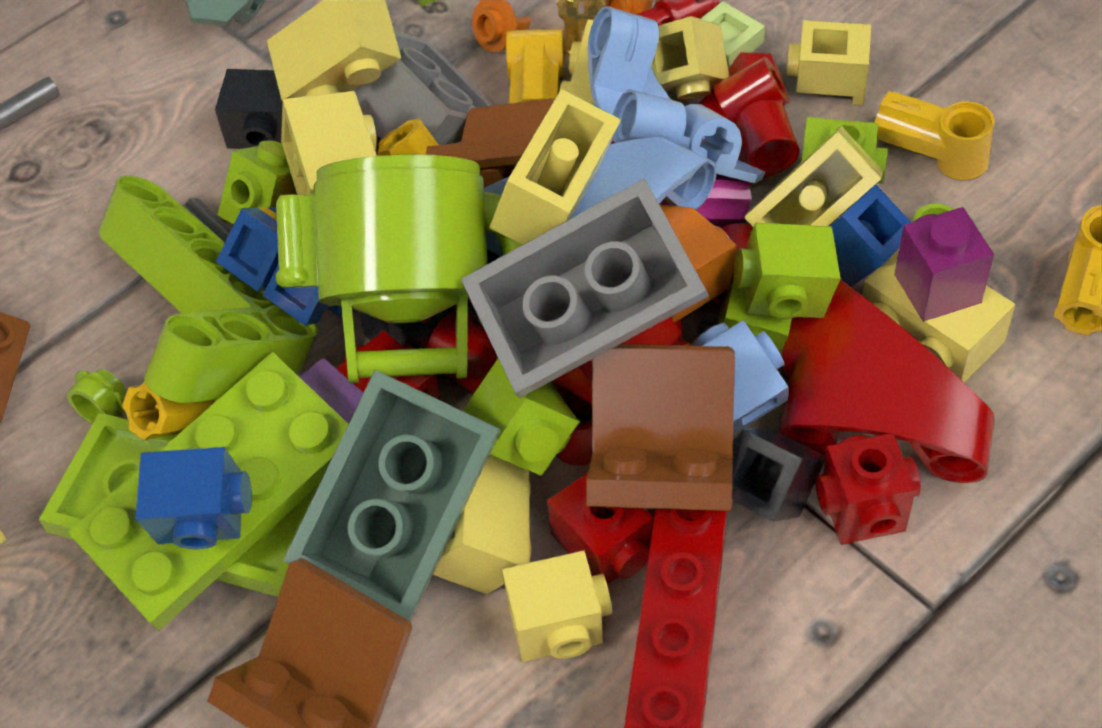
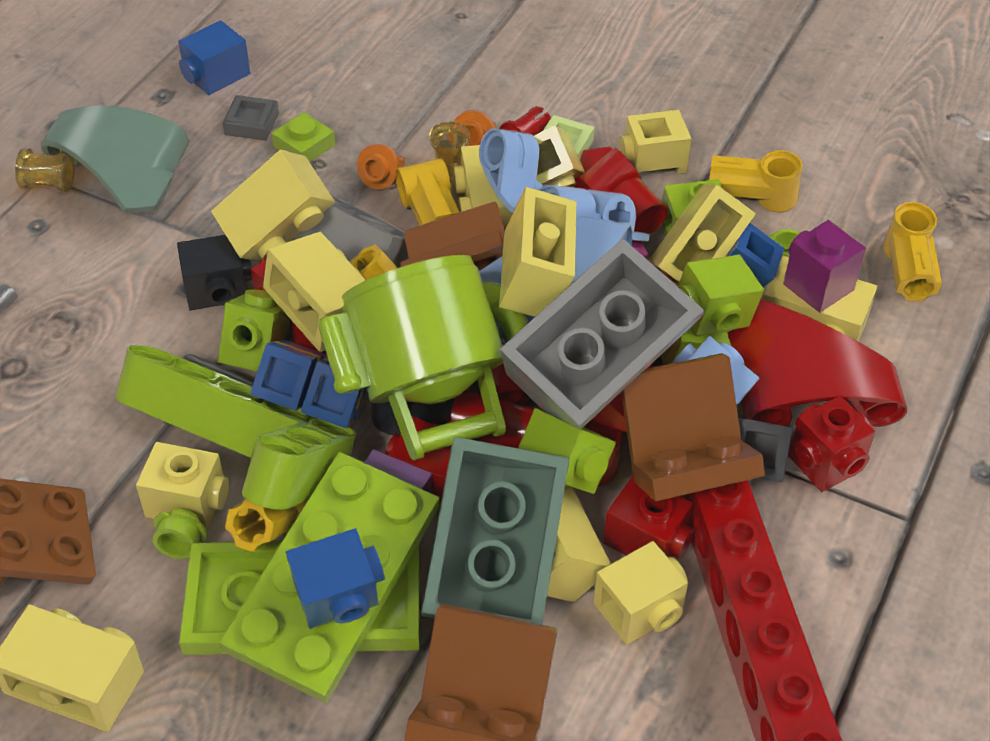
camera: 25 degrees left, 5 degrees down
(114, 338) = (182, 479): none -> light yellow brick

